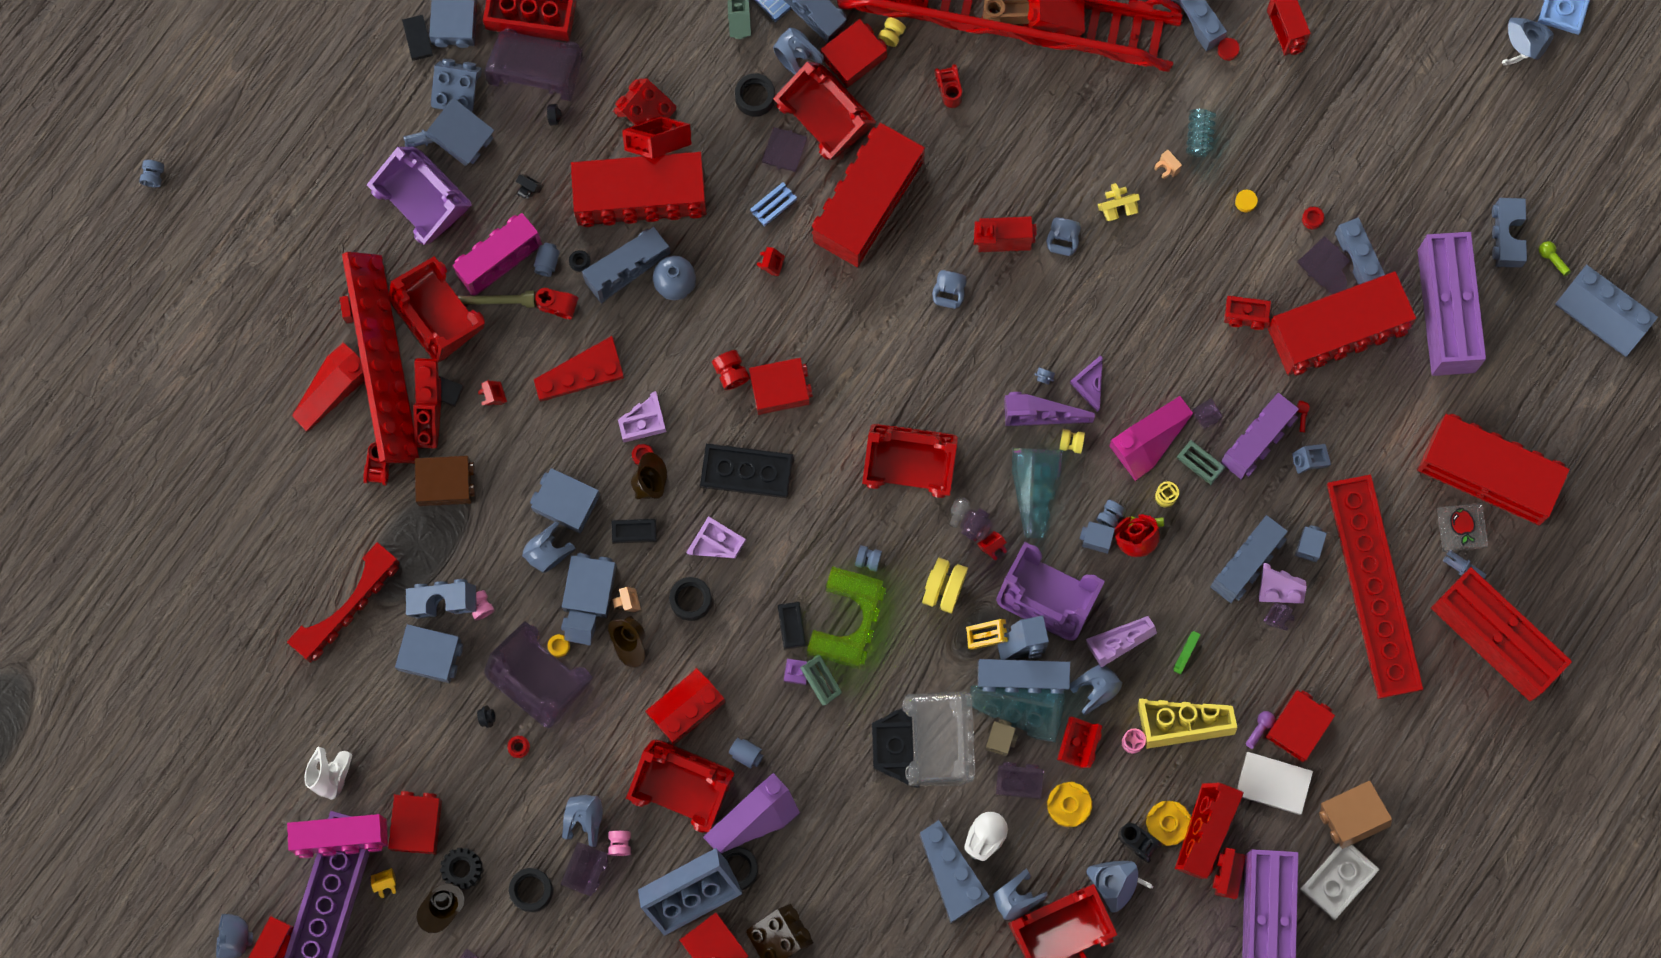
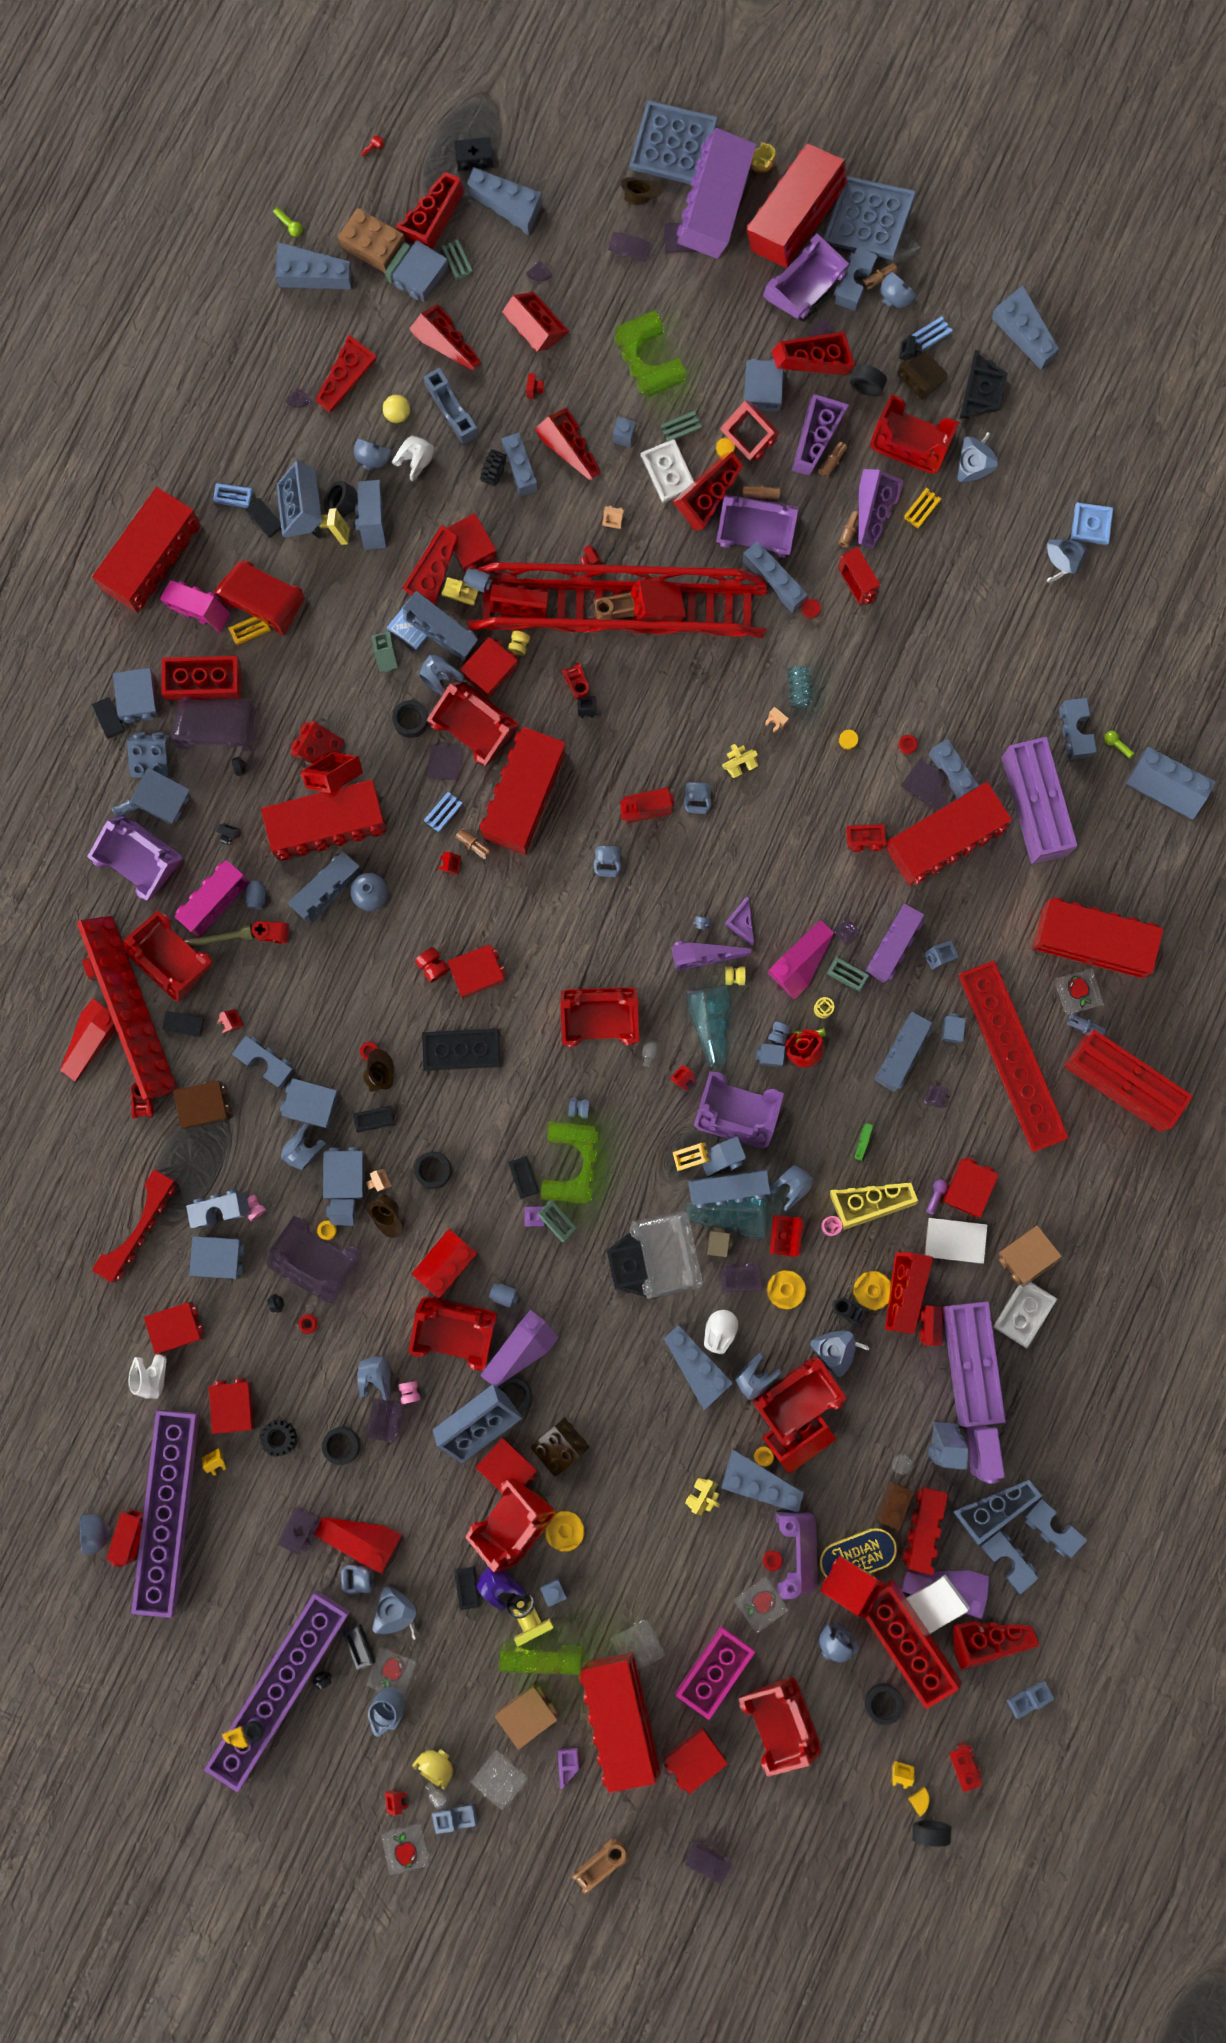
camera: 10 degrees left, 5 degrees up
(337, 834) = (168, 1432): dark pink brick -> none
(367, 723) = (174, 1327): none -> red brick
(428, 403) = (175, 1039): red slope -> none
(440, 908) = (265, 1476): dark brown piece -> none
(510, 431) = (251, 1051): none -> sand blue arch
(579, 254) = (284, 885): black plate -> none
(586, 370) = (304, 988): red wing -> none
(643, 420) = (364, 1021): lavender wing -> none
(716, 541) = (446, 1115): lavender wing -> none
(800, 244) = (473, 843): none -> medium nougat axle
(942, 584) = (648, 1121): light yellow wheel -> none
(955, 114) = (586, 706): none -> black tile
(976, 524) = (665, 1063): clear purple head -> none
(1120, 640) = (803, 1143): lavender wing -> none
(1281, 587) = (934, 1071): lavender wing -> none
(1303, 408) = (927, 911): red hand -> none

